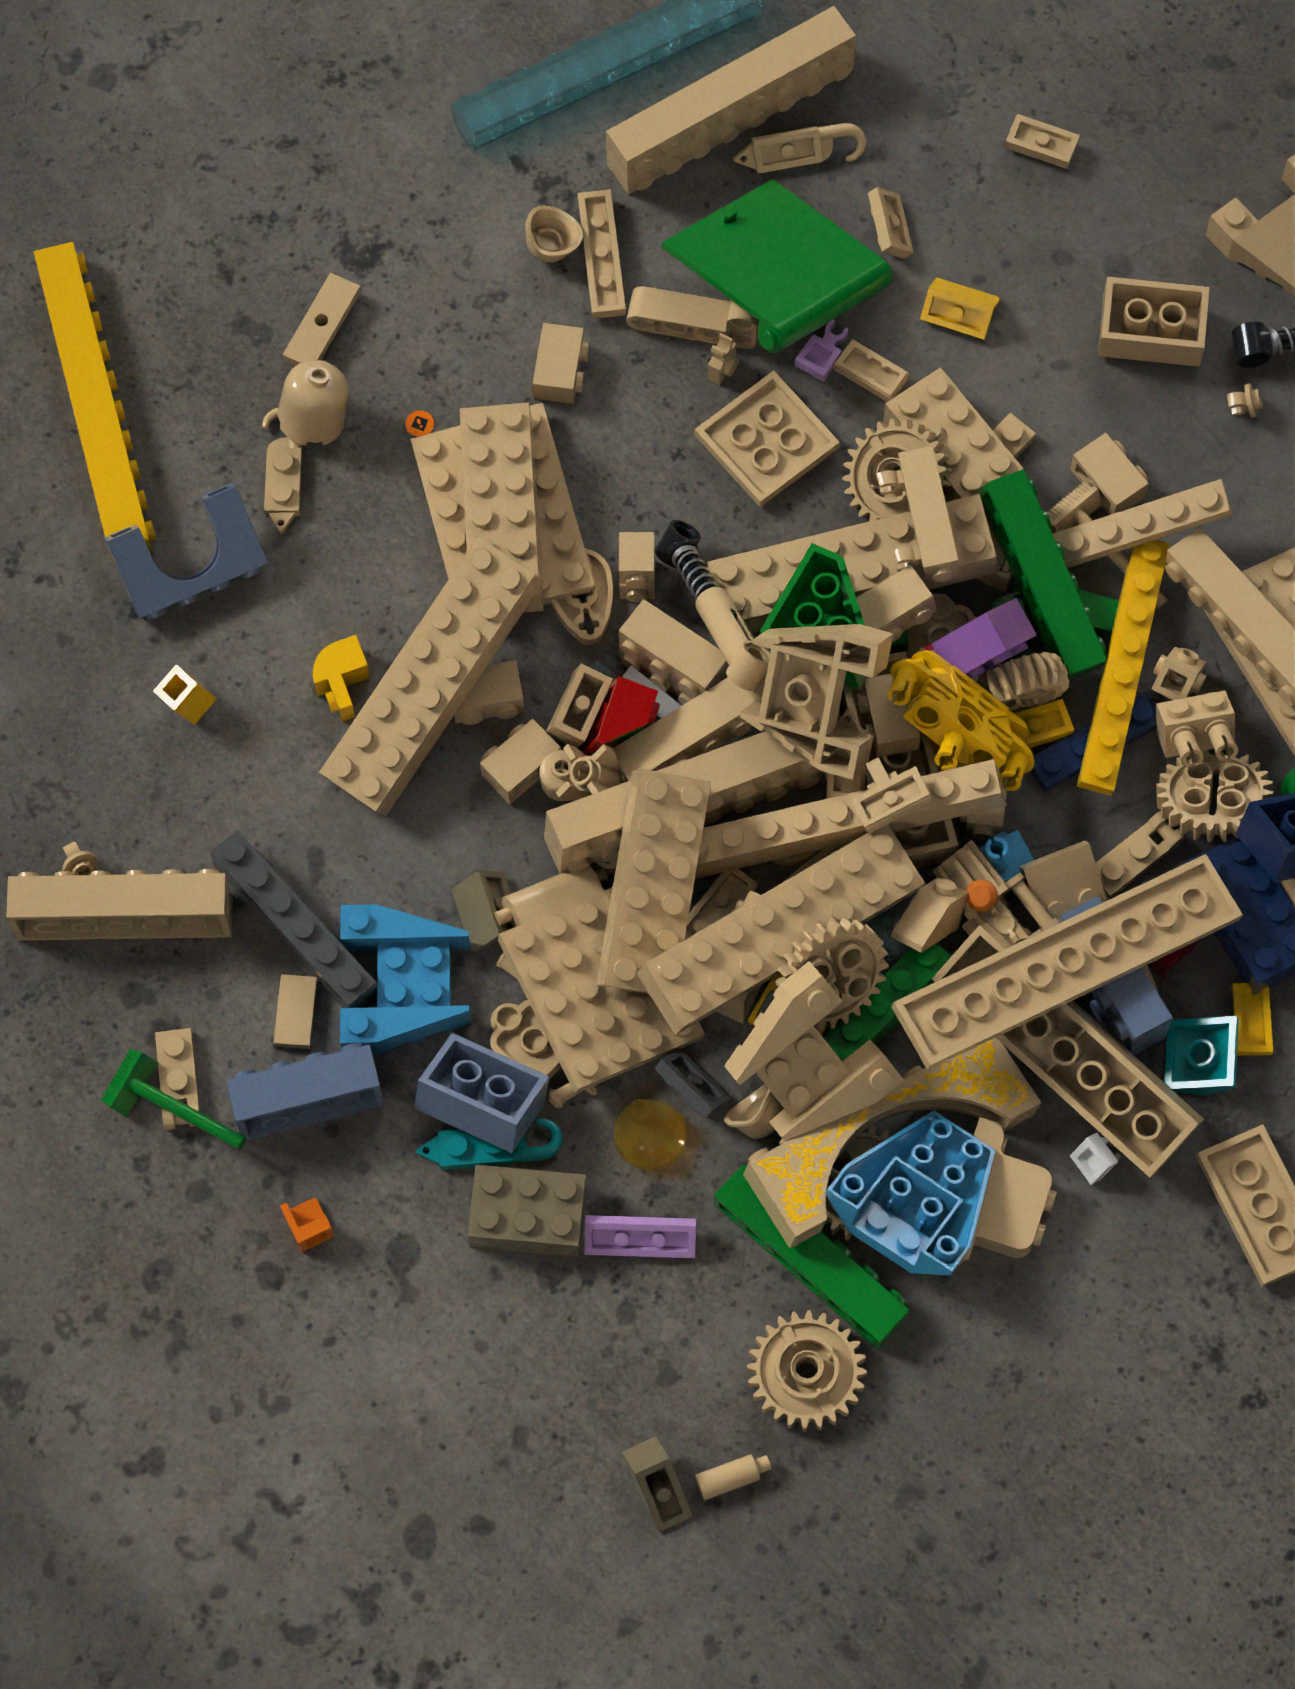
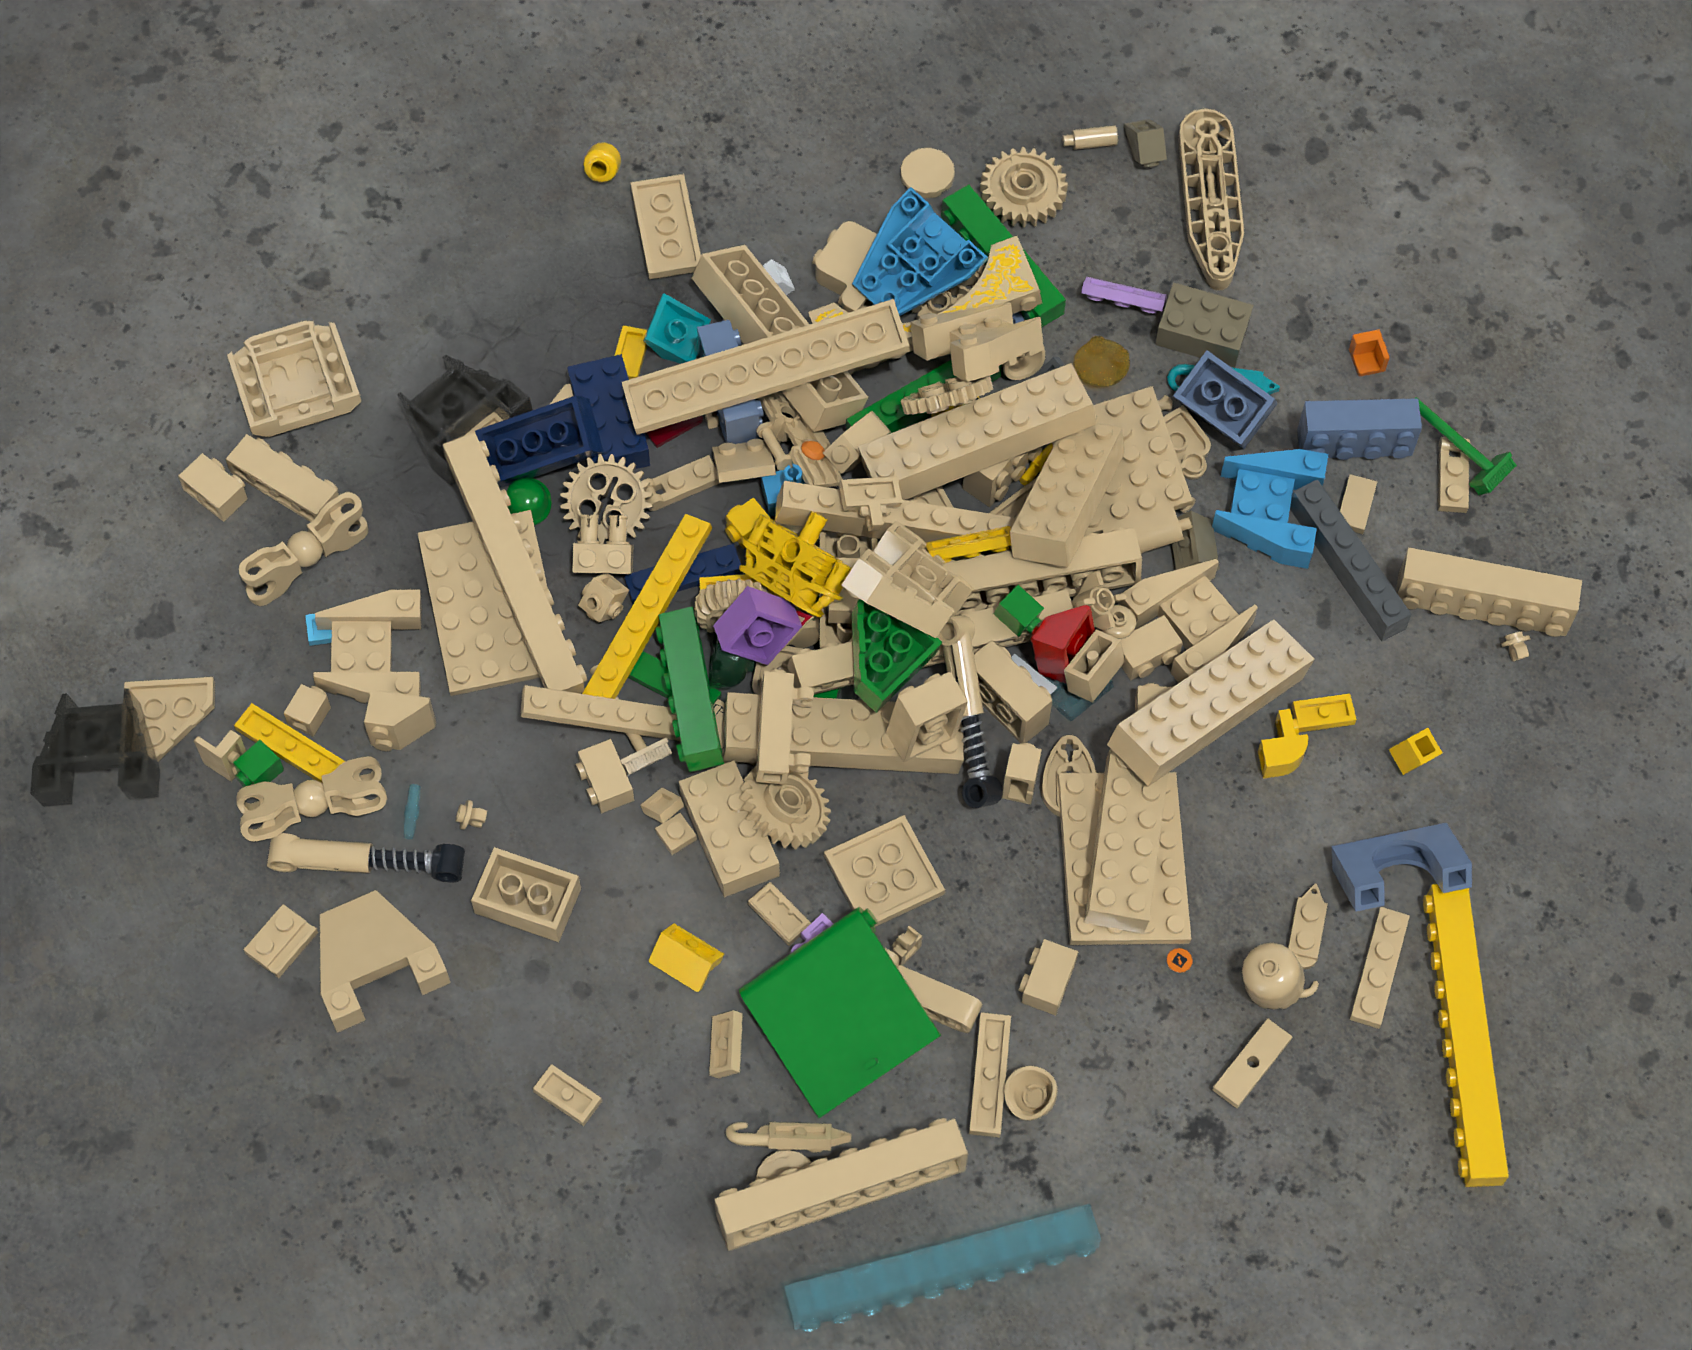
camera: 170 degrees left, 5 degrees down
(196, 457) = (1379, 967): none -> tan plate
(299, 729) = (1324, 712): none -> yellow plate
(466, 812) = (1195, 612): none -> tan wedge
(545, 1395) = (1201, 147): none -> tan beam
(680, 722) = (1019, 611): none -> green brick
(758, 549) = (926, 715): none -> tan brick
(758, 795) = (971, 544): none -> yellow plate
(798, 115) = (780, 1162): none -> tan plate
(941, 1372) = (927, 172): none -> tan tile
(1036, 457) = (662, 805): none -> tan plate
(1037, 813) = (742, 520): none -> yellow brick

